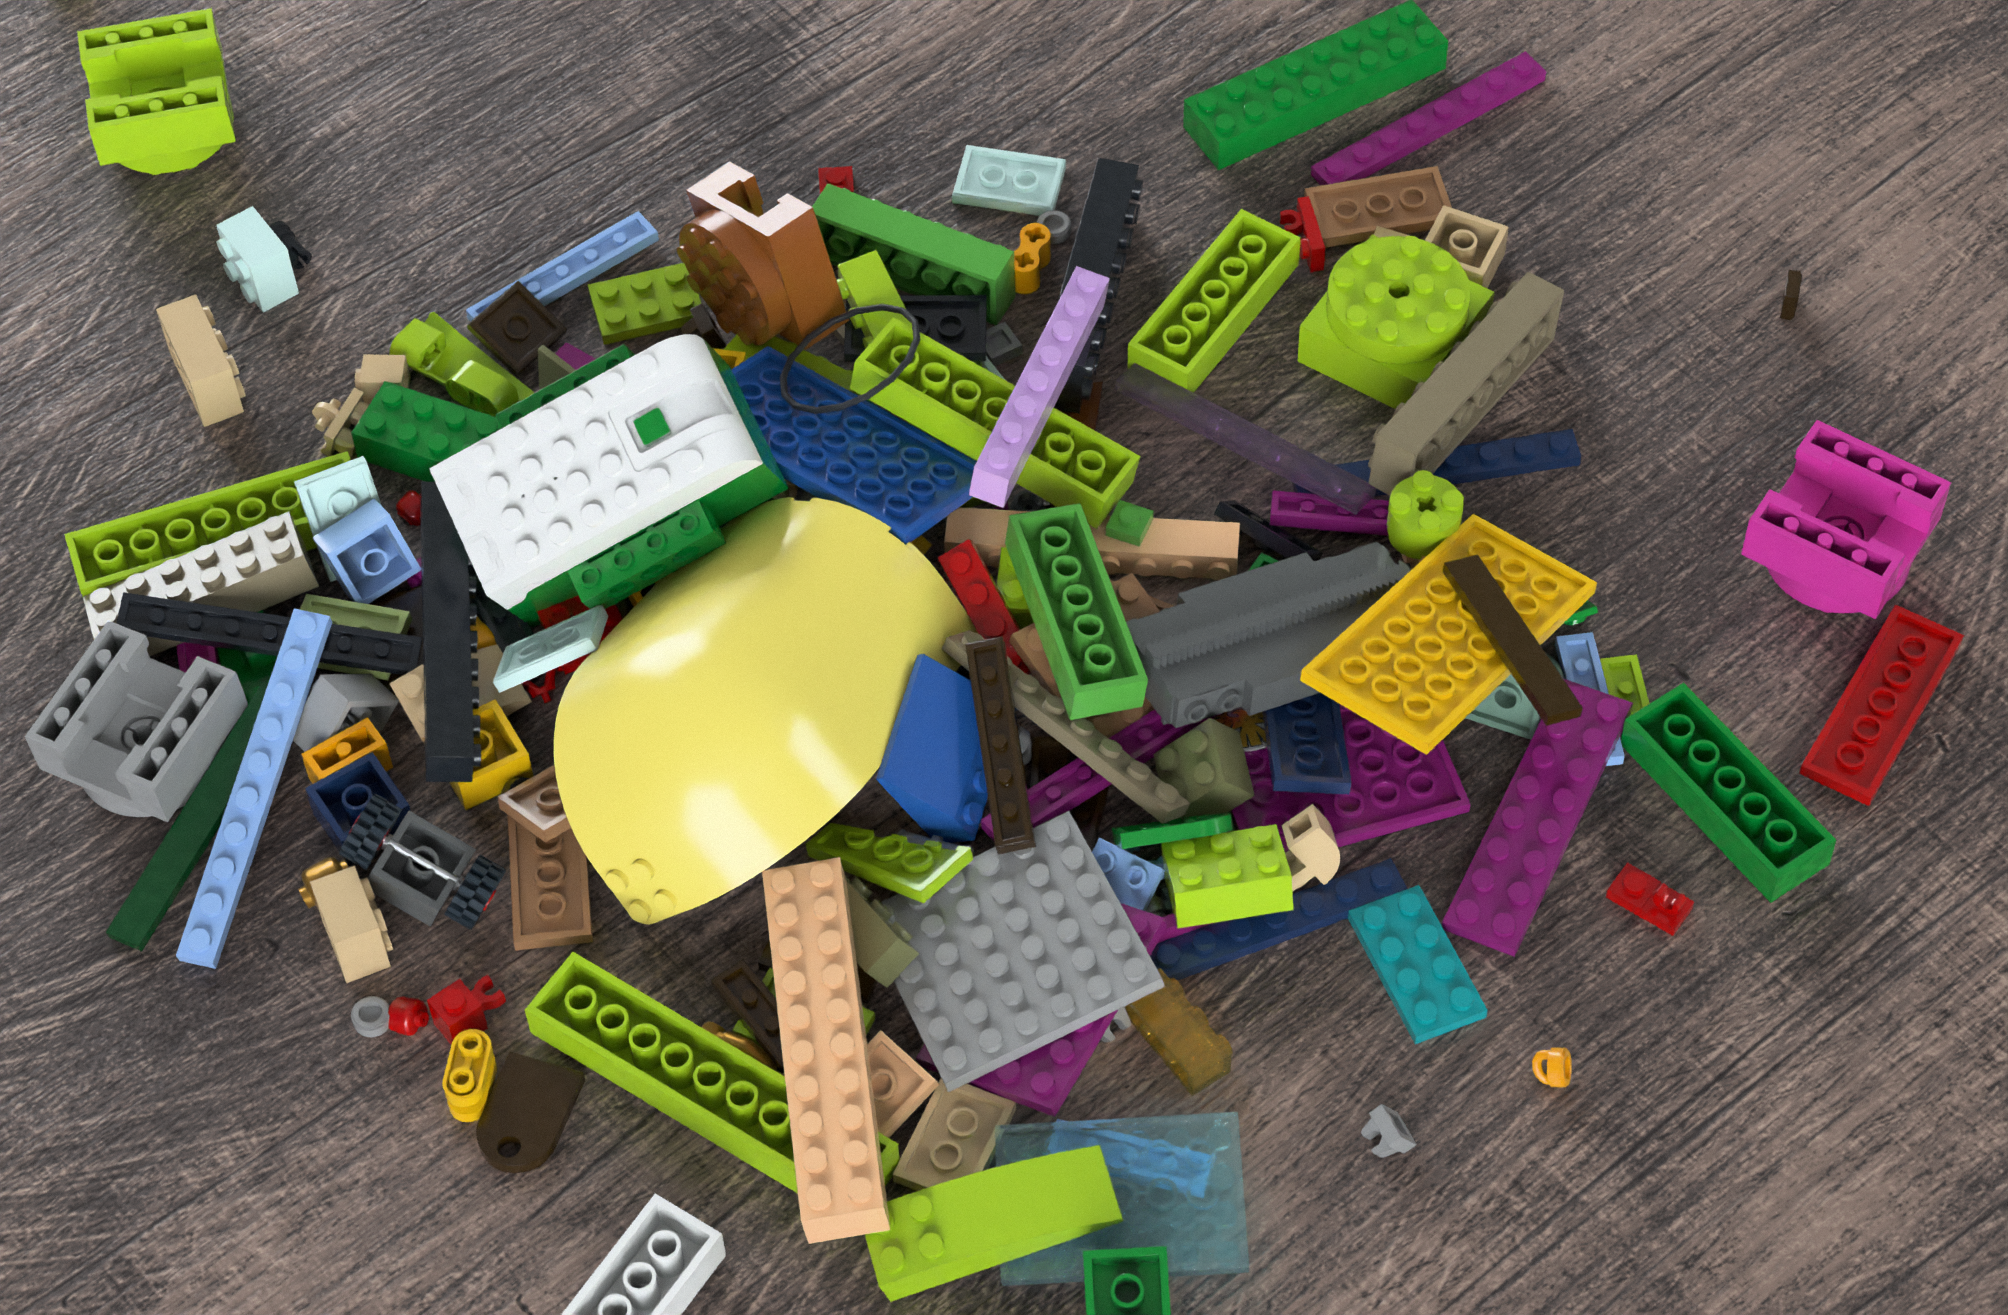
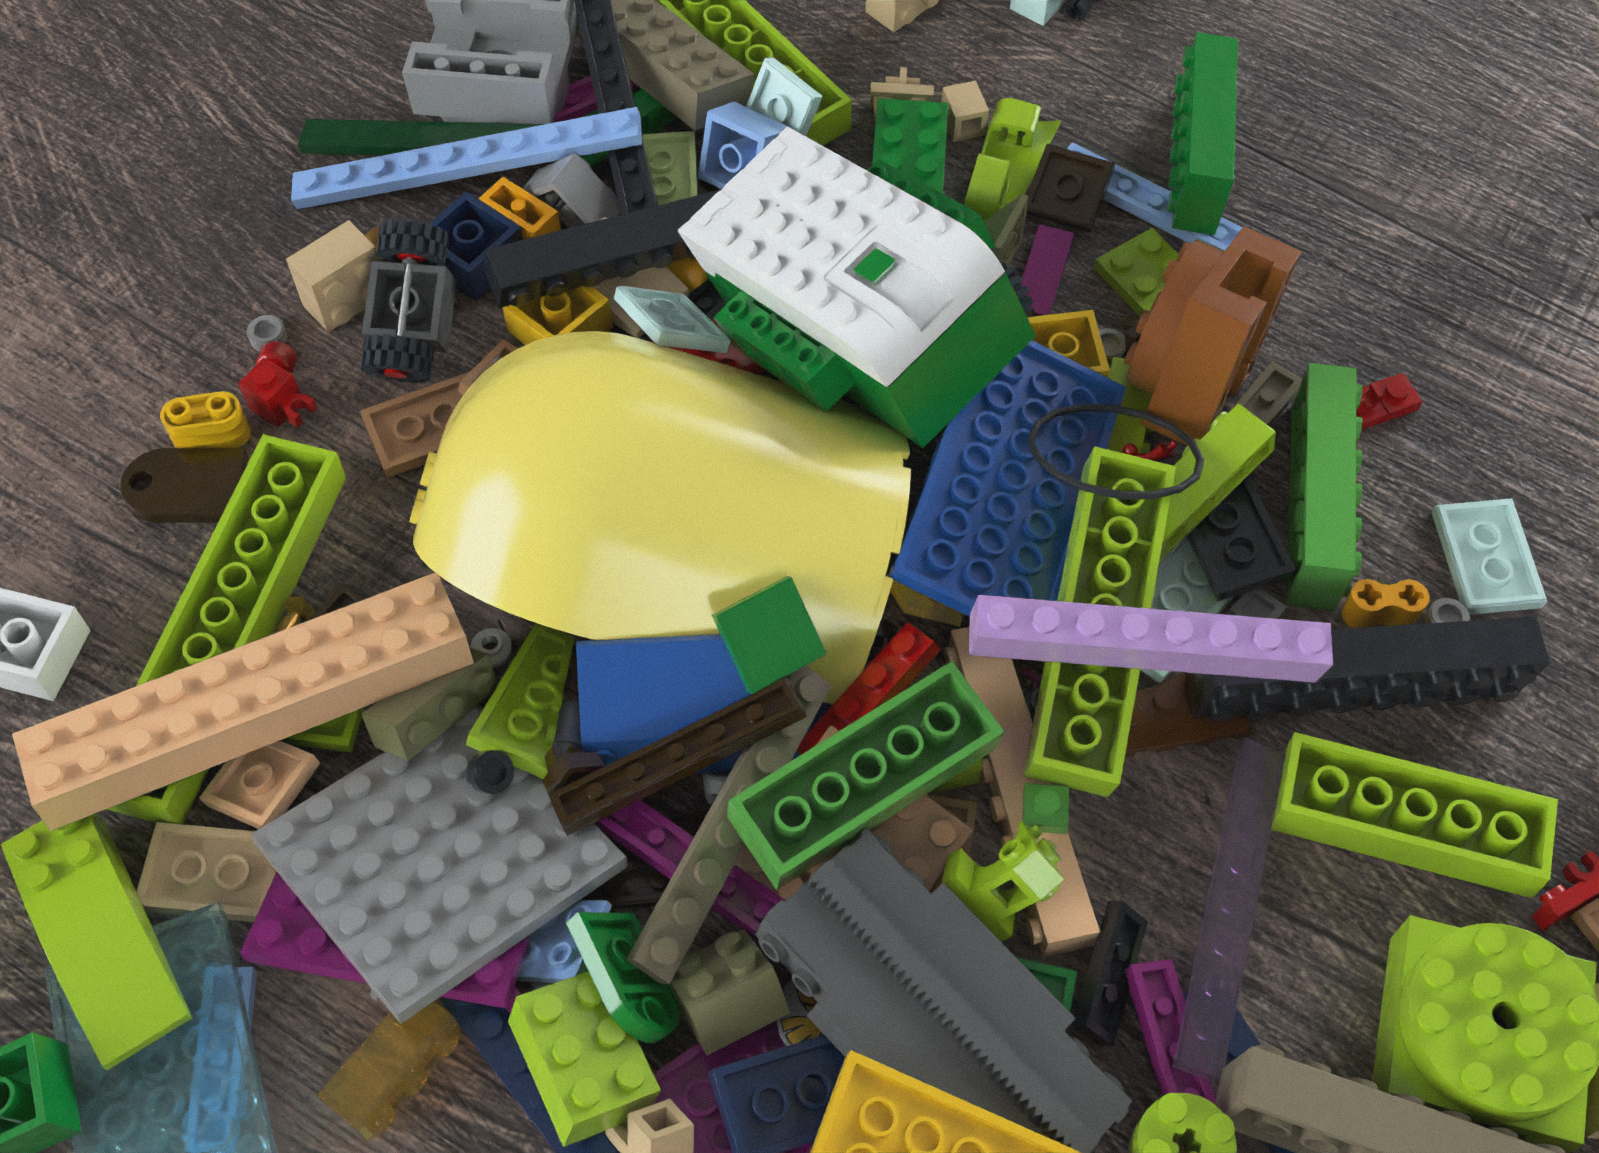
camera: 70 degrees right, 5 degrees up
(520, 203) = (1203, 133): none -> green brick
(833, 360) = (1159, 453): none -> red piece
(928, 638) = (769, 634): none -> green tile
(958, 888) = (490, 772): none -> black tile
(973, 831) = (569, 766): none -> dark brown tile
(1187, 556) = (1024, 861): none -> lime tile

